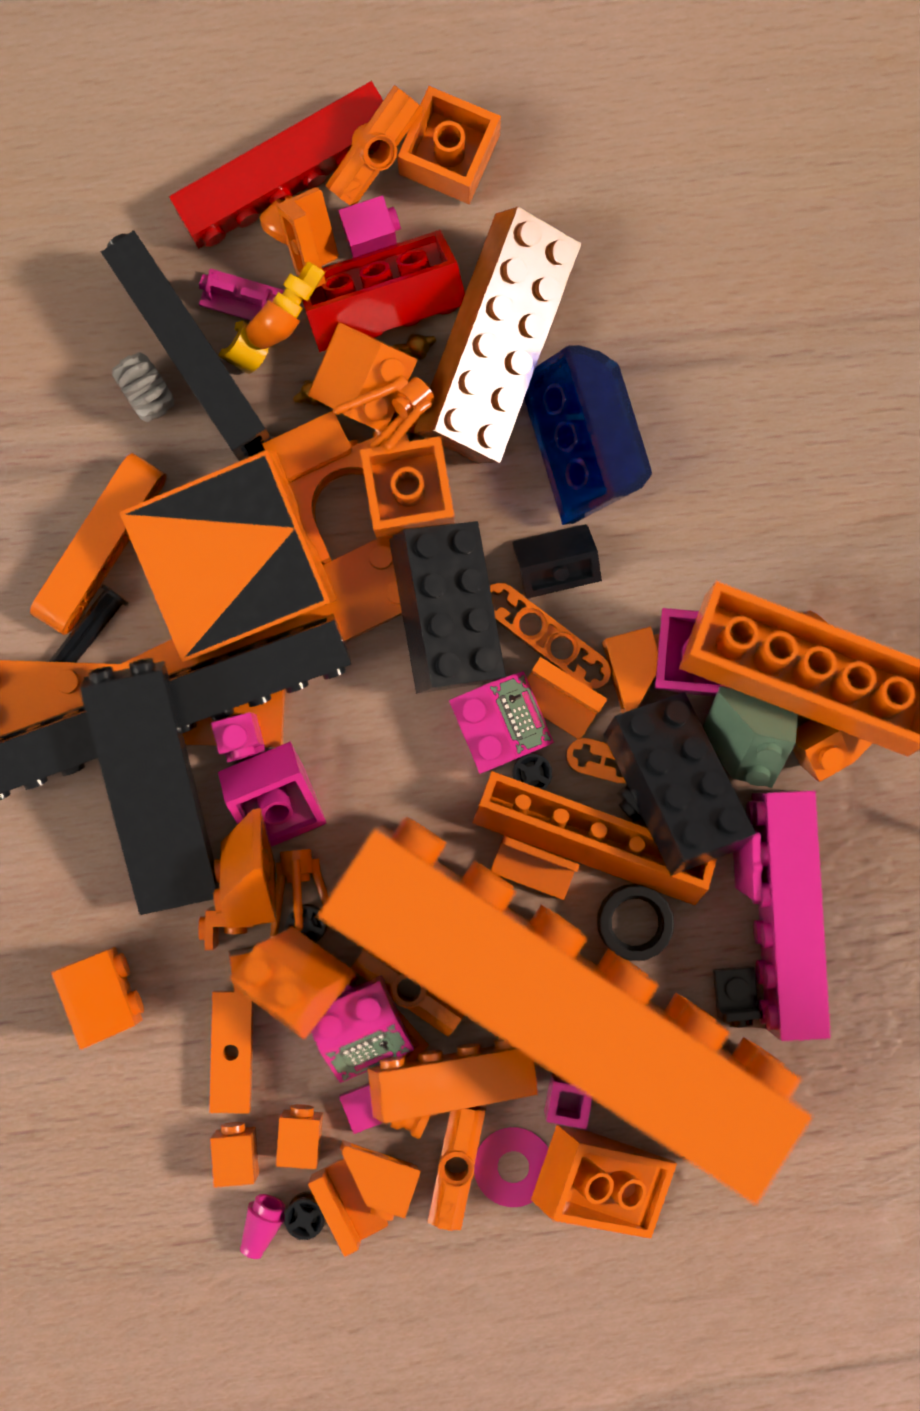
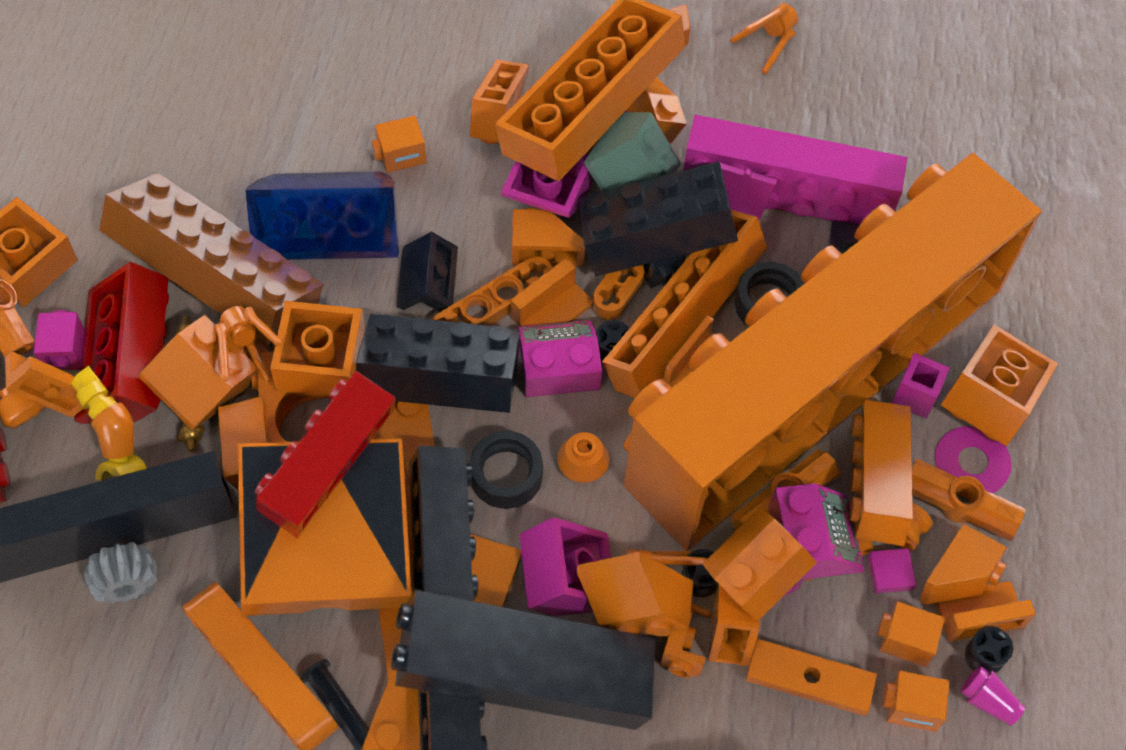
camera: 80 degrees left, 25 degrees down
(234, 294) = (73, 467): dark pink hinge -> none
(239, 737) = (500, 575): dark pink brick -> none
(277, 538) = (324, 454): none -> red brick
(347, 680) = (506, 442): none -> black tyre
(407, 769) = (583, 458): none -> orange cone
(706, 478) = (399, 144): none -> orange brick
(800, 566) = (495, 97): none -> orange slope

